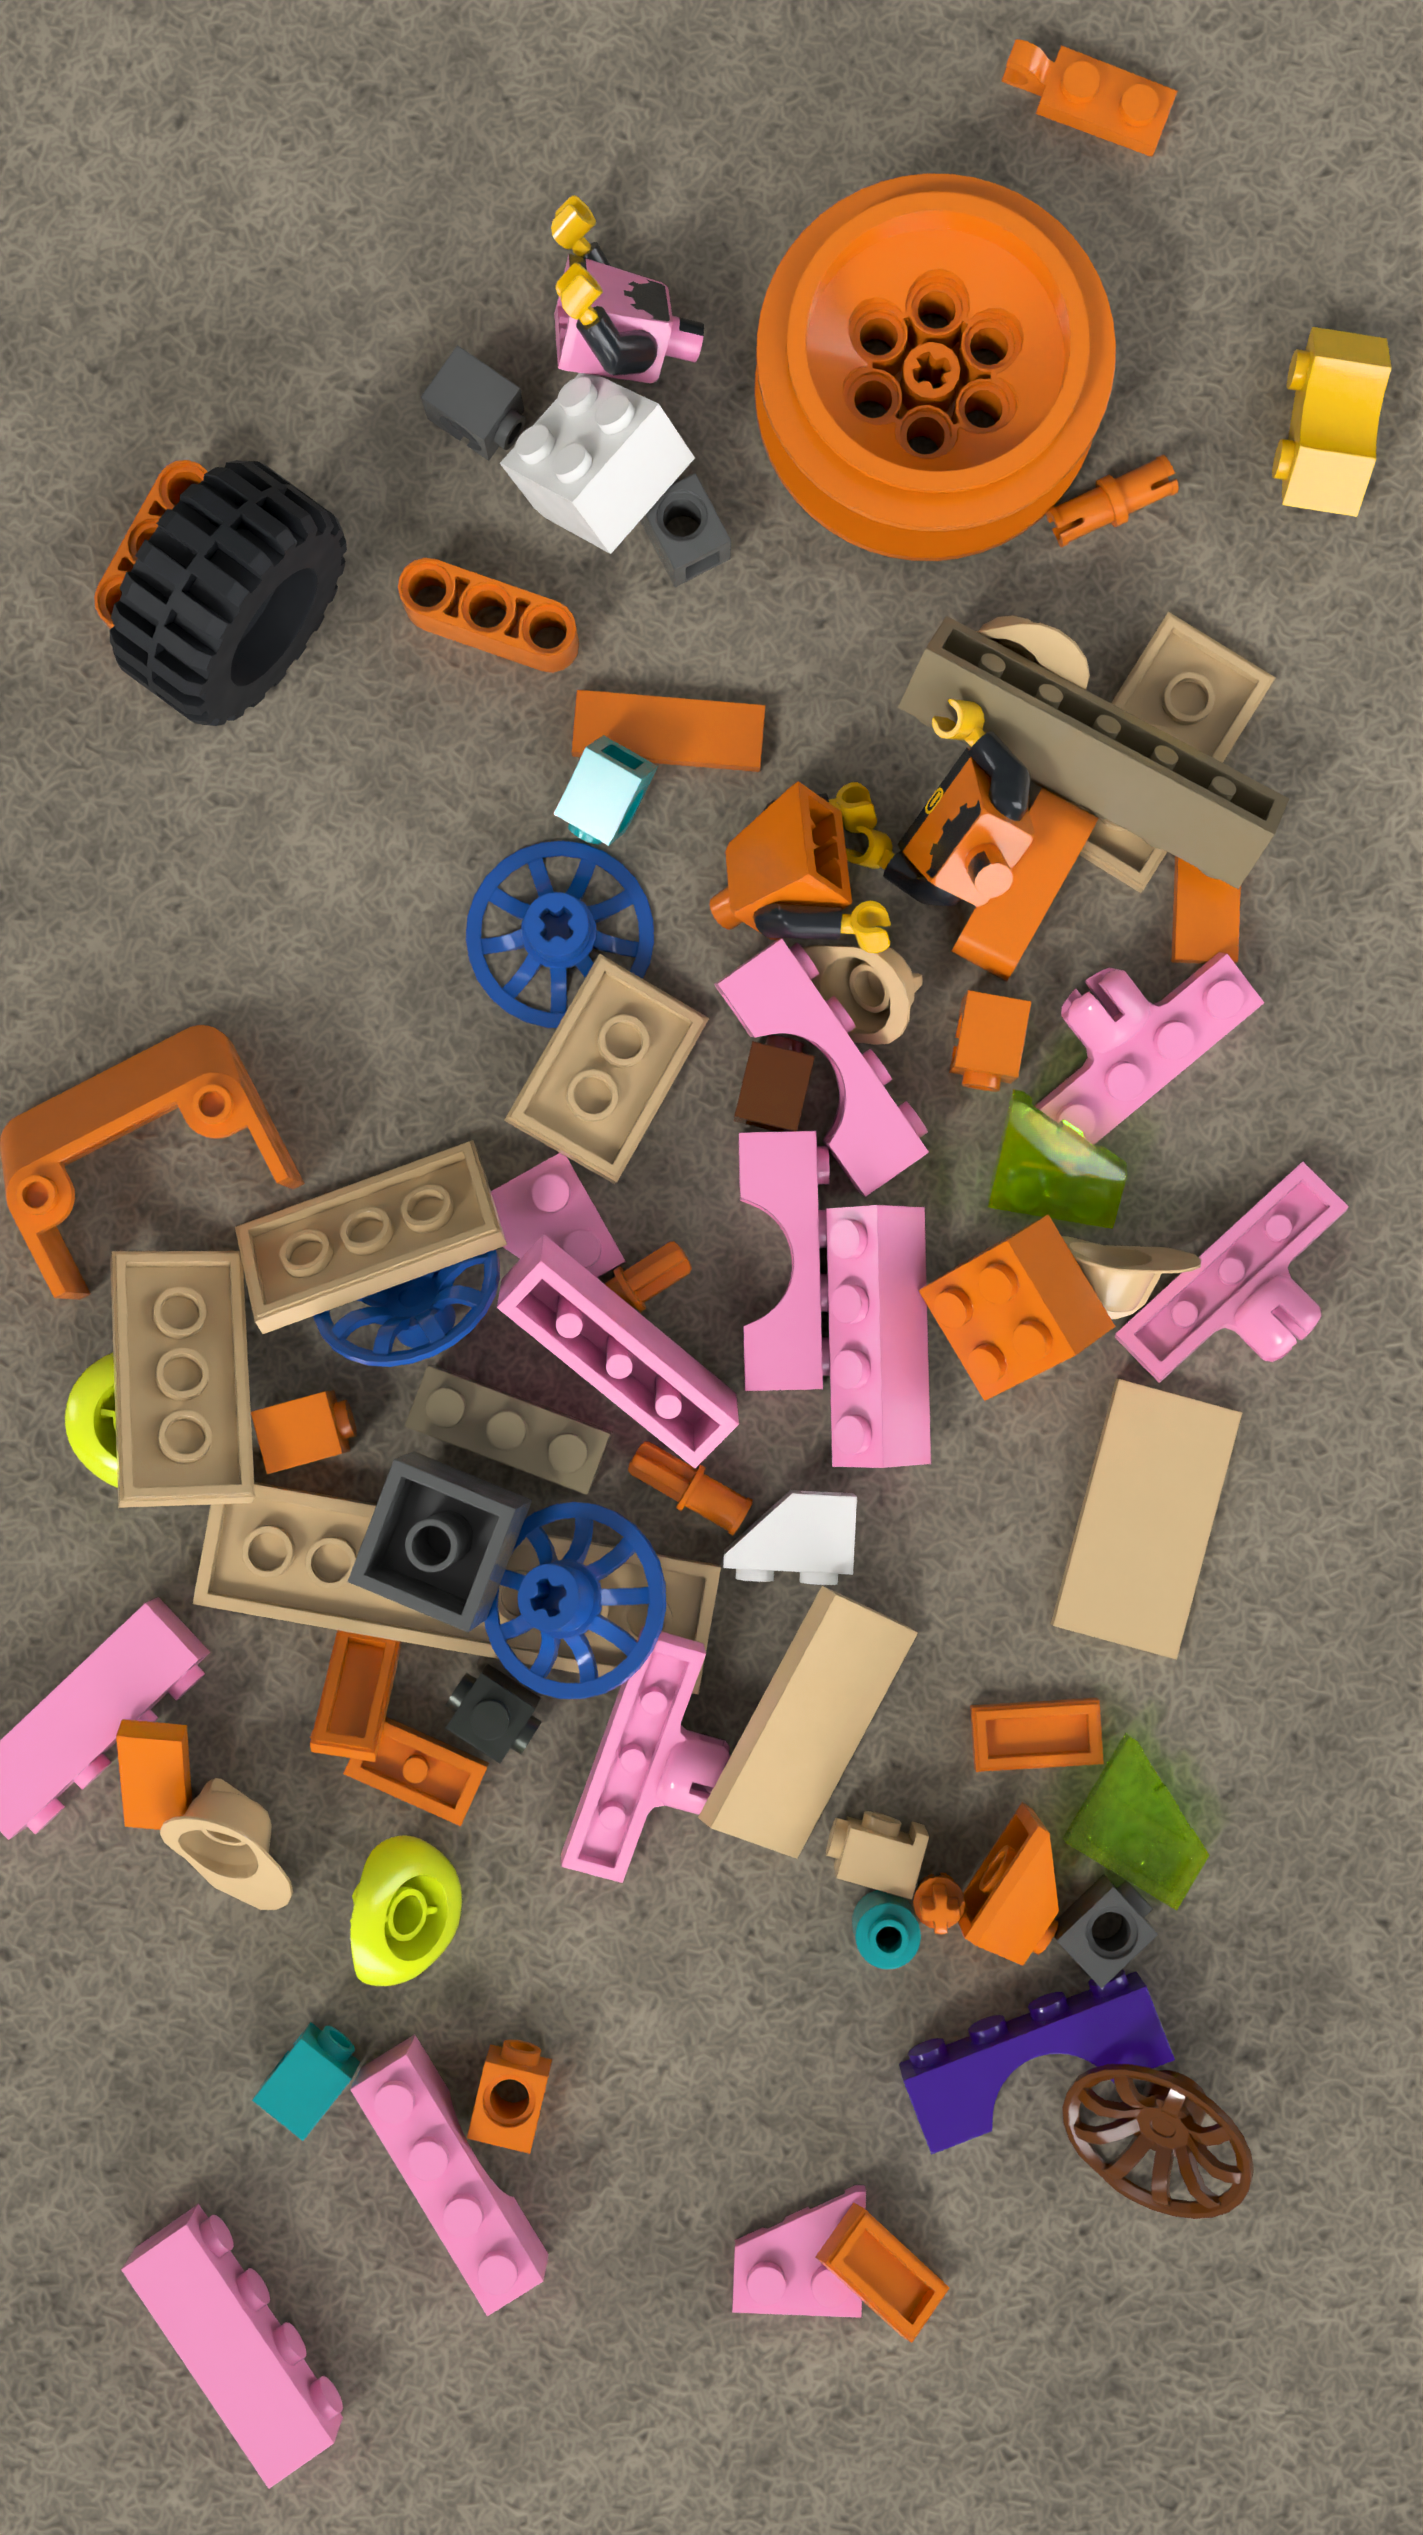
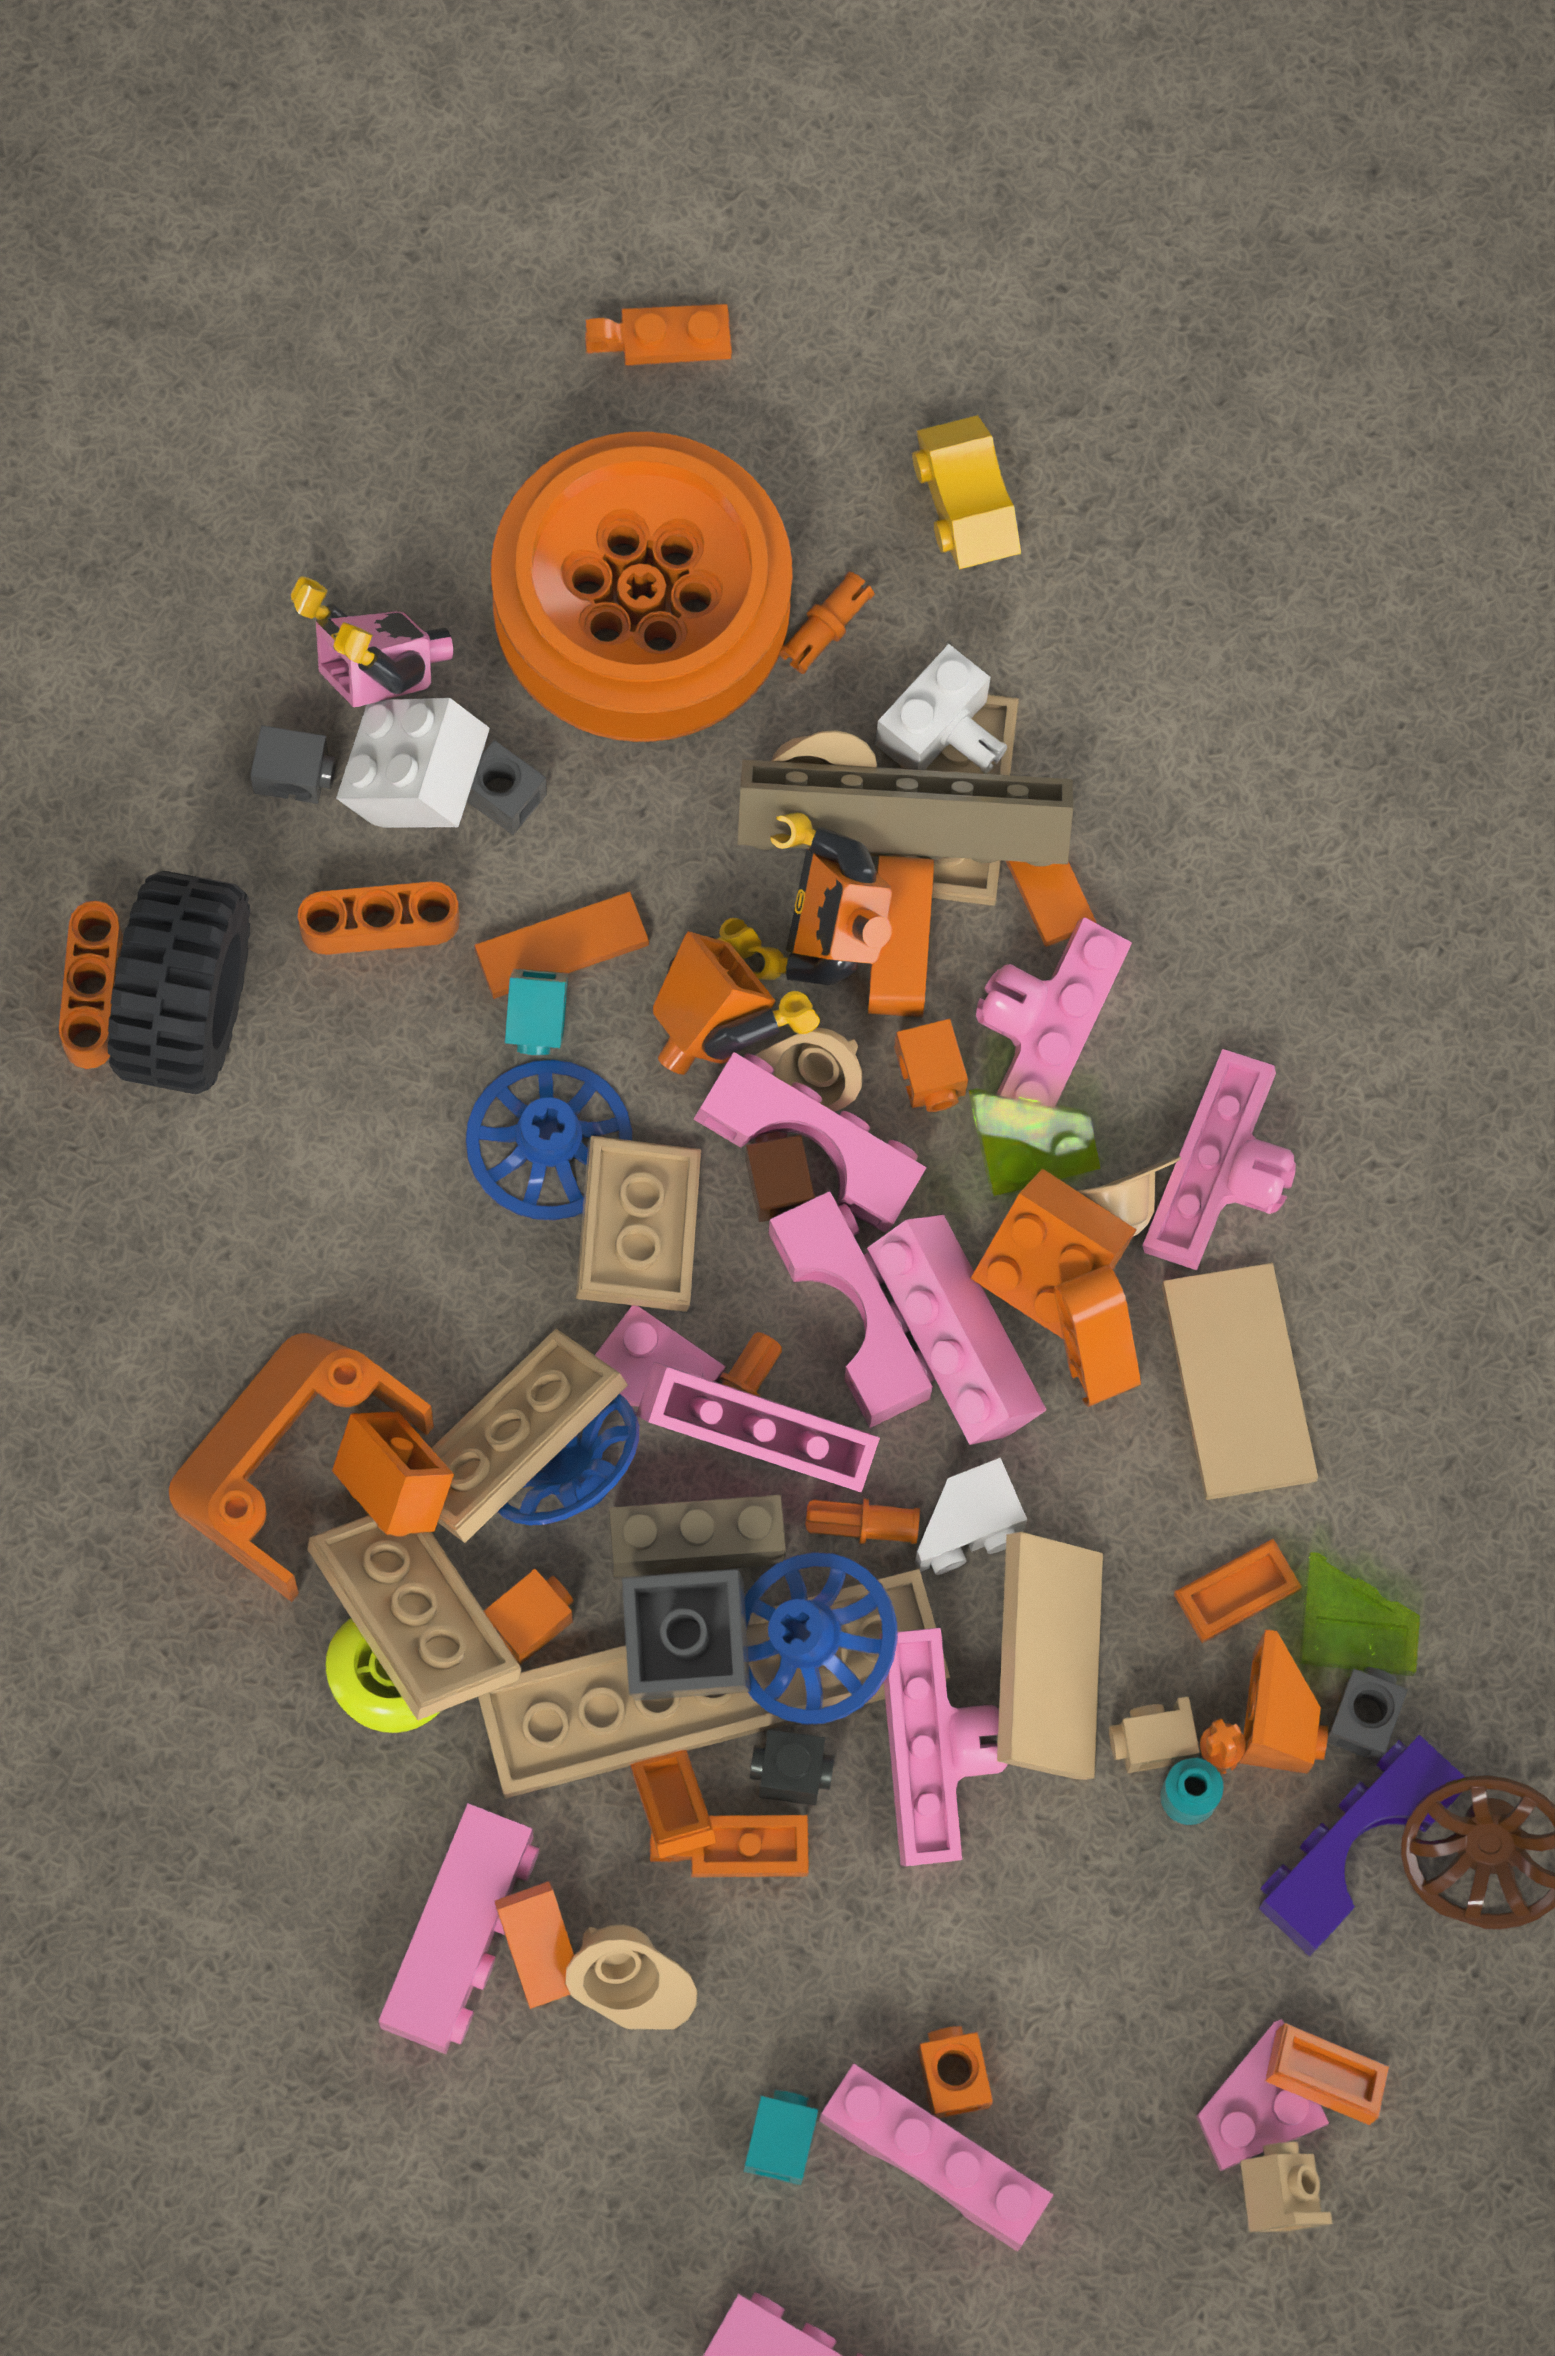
camera: 30 degrees left, 15 degrees down
(223, 1225) = (392, 1473): none -> orange brick
(403, 1911) = (795, 1962): neon yellow hat -> none
(779, 2373) = (1282, 2190): none -> tan brick
(1020, 1418) = (1098, 1334): none -> orange beam
(1180, 659) = (940, 713): none -> white brick

